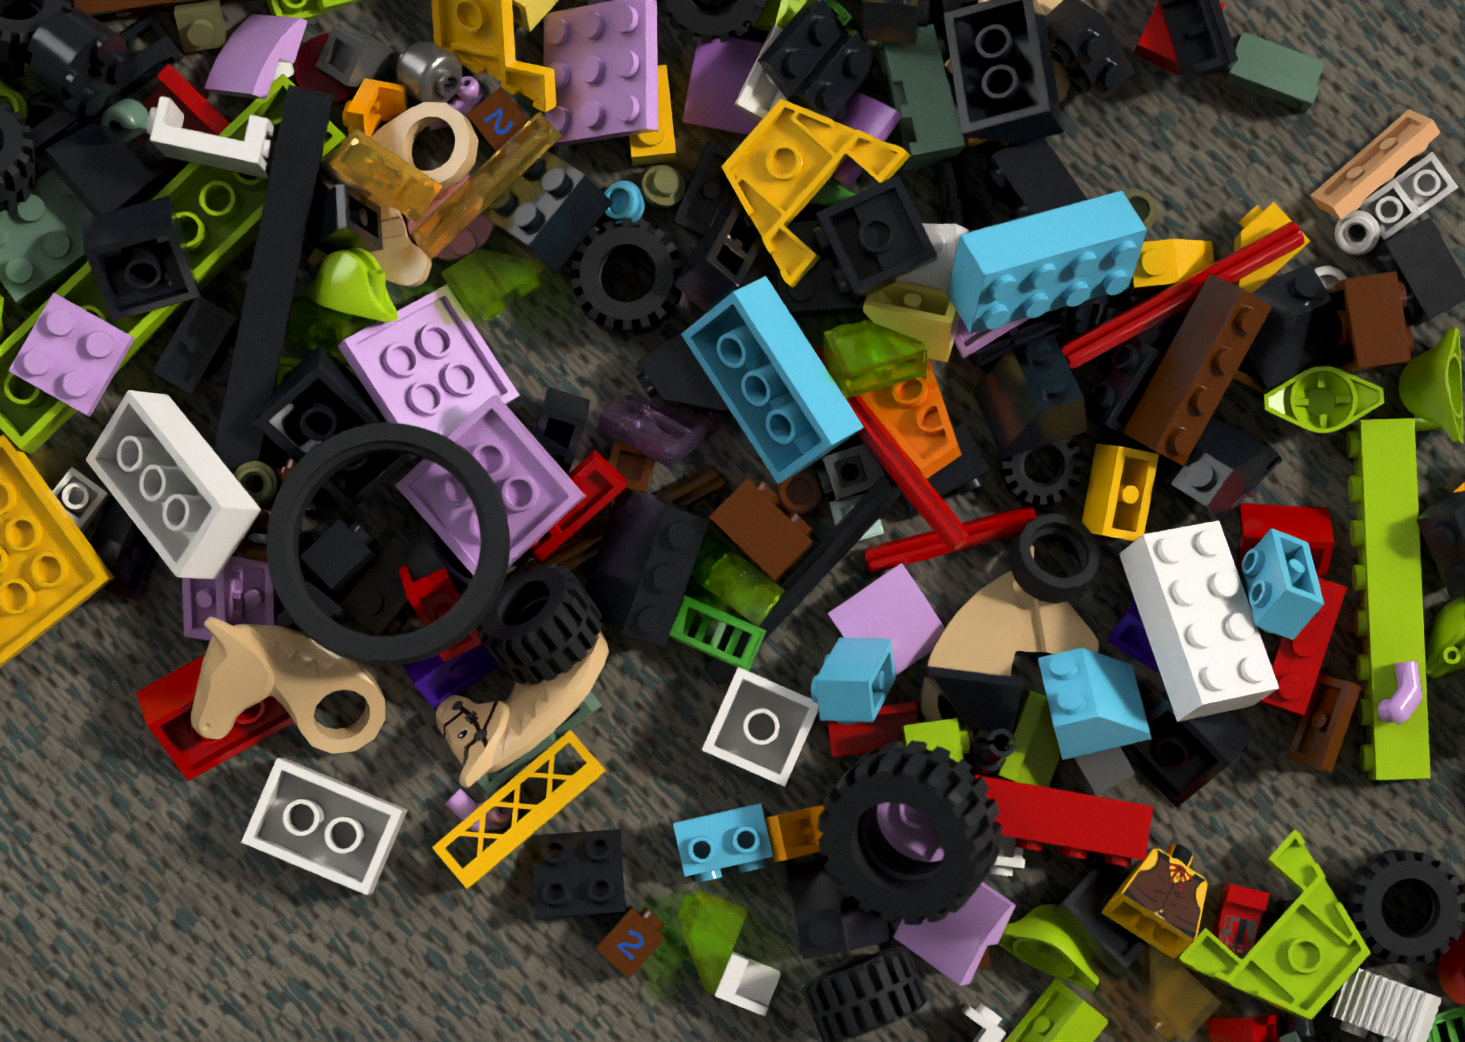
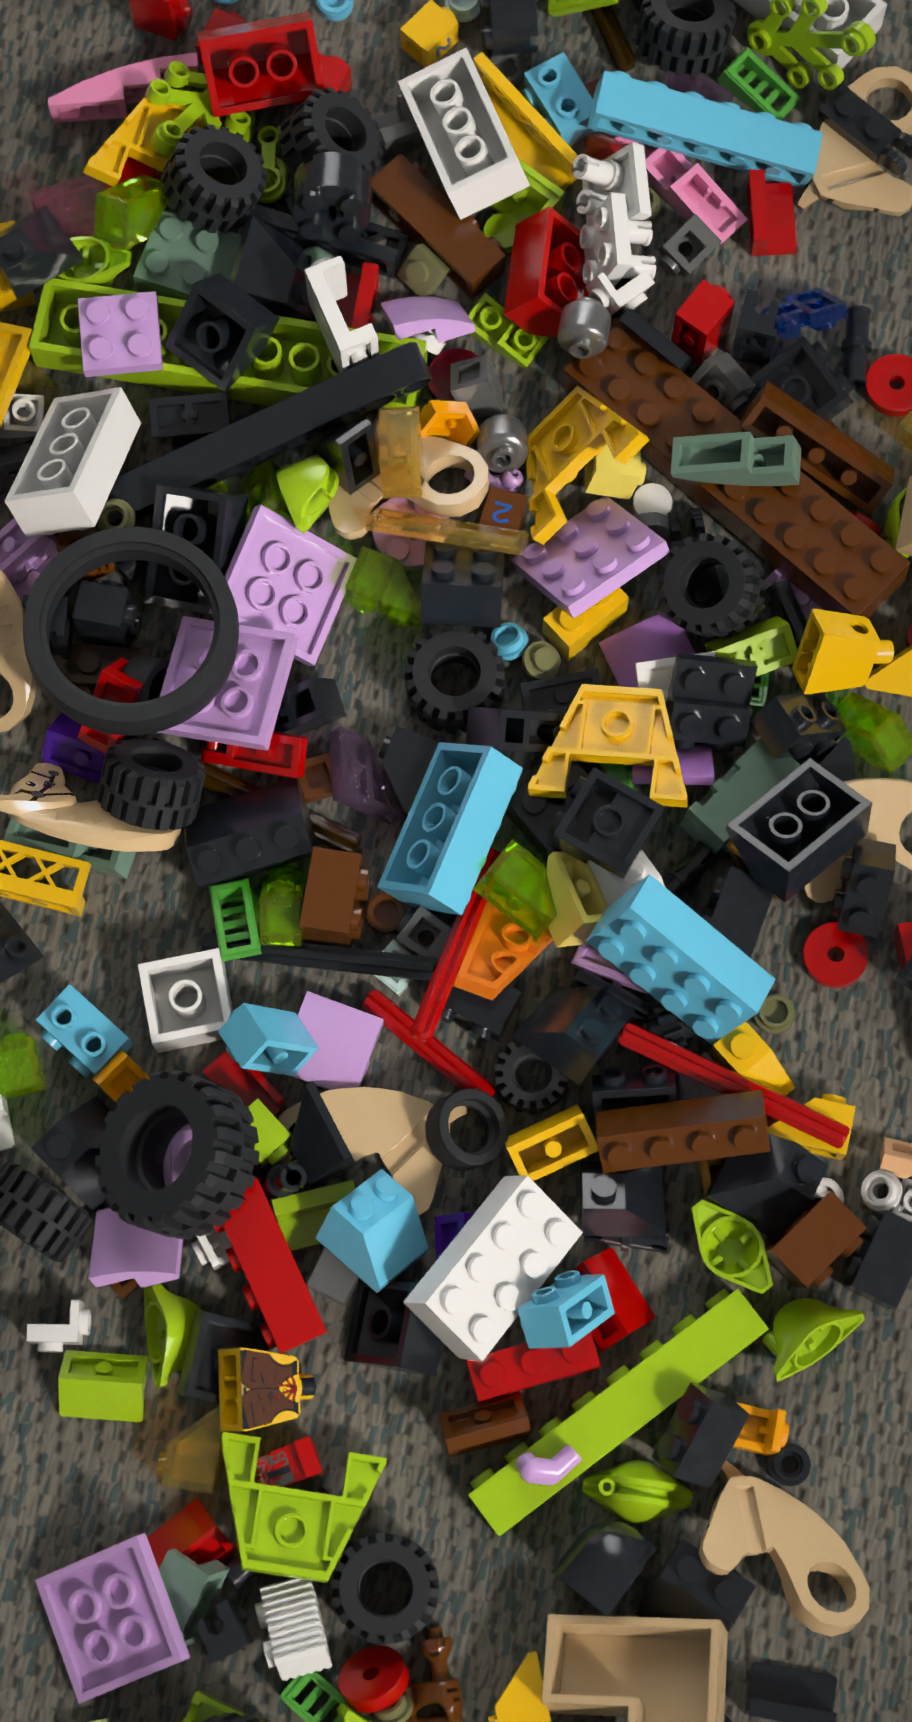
camera: 55 degrees right, 10 degrees down
(1125, 139) = (831, 973): none -> red piece

